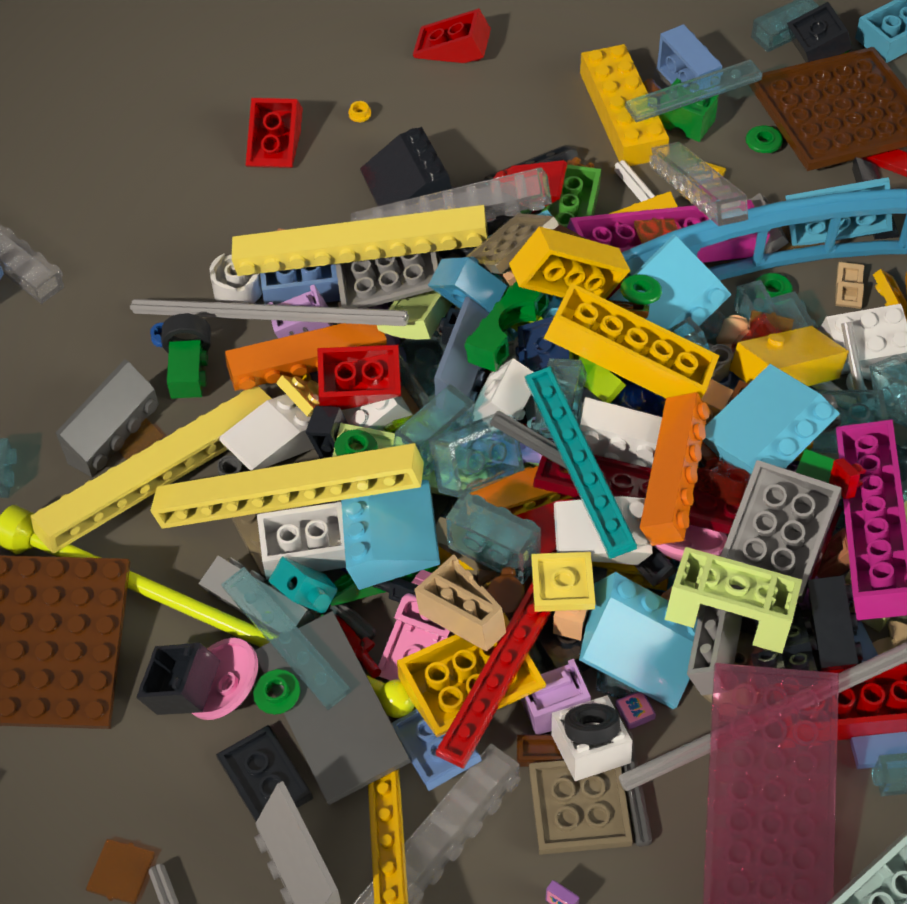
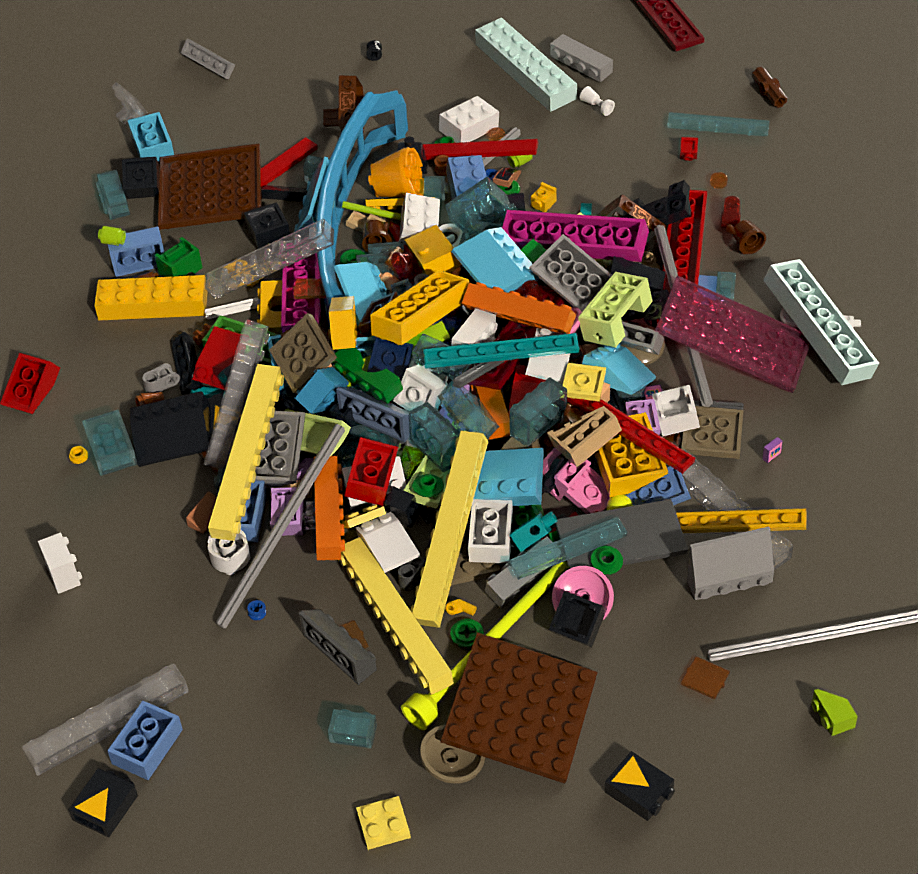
camera: 75 degrees left, 5 degrees down
(143, 559) = (458, 632): none -> green gear
(185, 369) = (303, 592): green brick -> none
(186, 134) = (60, 562): none -> white container
(186, 324) = (274, 585): black tyre -> none
(197, 542) = (458, 606): none -> yellow arm
(258, 766) = (654, 590): black tile -> none
(273, 132) = (79, 510): red slope -> none
(373, 126) = (109, 442): none -> clear light blue brick
(457, 147) = (146, 398): none -> dark orange cone
(492, 148) = (159, 379): none -> light grey piece
(592, 734) = (681, 404): black tyre -> none
(641, 282) = (367, 293): green piece -> none
(680, 24) = (112, 236): none -> lime brick
(693, 90) = (174, 247): clear light blue tile -> none
(764, 133) = (219, 228): green piece -> none
(787, 175) = (266, 224): none -> black container
(823, 298) = (375, 232): none -> reddish brown hat
(846, 477) = (548, 235): red tile -> none
(853, 357) = (442, 227): light grey bar -> none
(863, 275) = (370, 210): none -> lime bar

